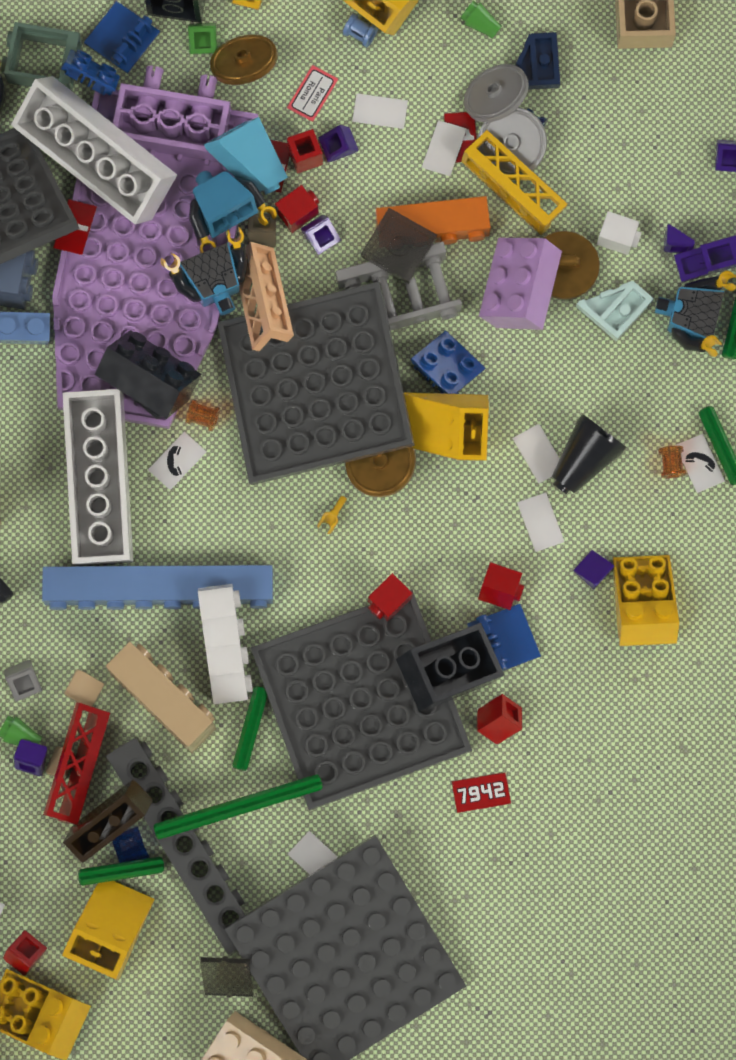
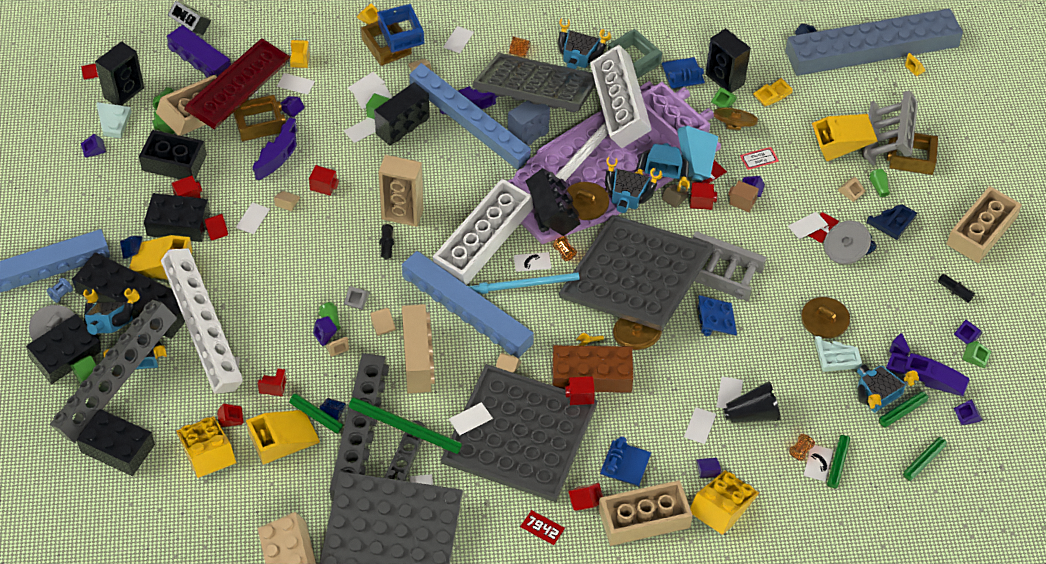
camera: 40 degrees right, 25 degrees down
(34, 873) = (273, 384): none -> red panel
(76, 240) = (580, 128): red sticker -> none
(82, 764) = (343, 354): red fence -> none
(103, 75) = (648, 64): blue hinge -> none
(108, 821) = (332, 379): dark brown brick -> none
(113, 266) = (583, 152): none -> white axle
(157, 545) = (483, 288): none -> medium azure bar
(178, 327) = (589, 200): none -> pearl gold shield
(223, 643) = (472, 348): white brick -> none
(226, 976) = (318, 501): clear smoke piece -> none
(250, 728) = (448, 402): green axle -> none
(264, 834) = (402, 454): none -> dark grey beam
(267, 294) = (647, 214): light nougat fence -> none
(273, 623) = (508, 362): none -> tan slope
(296, 732) = (470, 418): none -> white sticker
(305, 151) = (729, 172): red brick -> none
(321, 234) = (704, 217): slope -> none
(343, 169) = (743, 196): none -> medium nougat brick
(360, 30) = (810, 145): medium blue bush -> none
(372, 553) = (607, 364): none -> dark orange brick
(380, 111) = (788, 188): white sticker -> none
(398, 245) = (740, 241): clear smoke tile -> none
(449, 218) = (779, 253): orange brick -> none
(449, 424) = (691, 338): yellow slope -> none
(449, 667) = (581, 443): black brick -> none
(453, 54) = (852, 189): none -> tan slope
(496, 93) = (858, 215): light grey shield -> none
(501, 586) = (647, 433): red brick -> none
(506, 189) = (825, 262): yellow fence -> none
(520, 283) = (791, 302): lavender brick -> none
(580, 689) = (645, 512): none -> tan brick
(619, 233) = (869, 322): white brick -> none
(675, 104) = (956, 288): none -> black axle

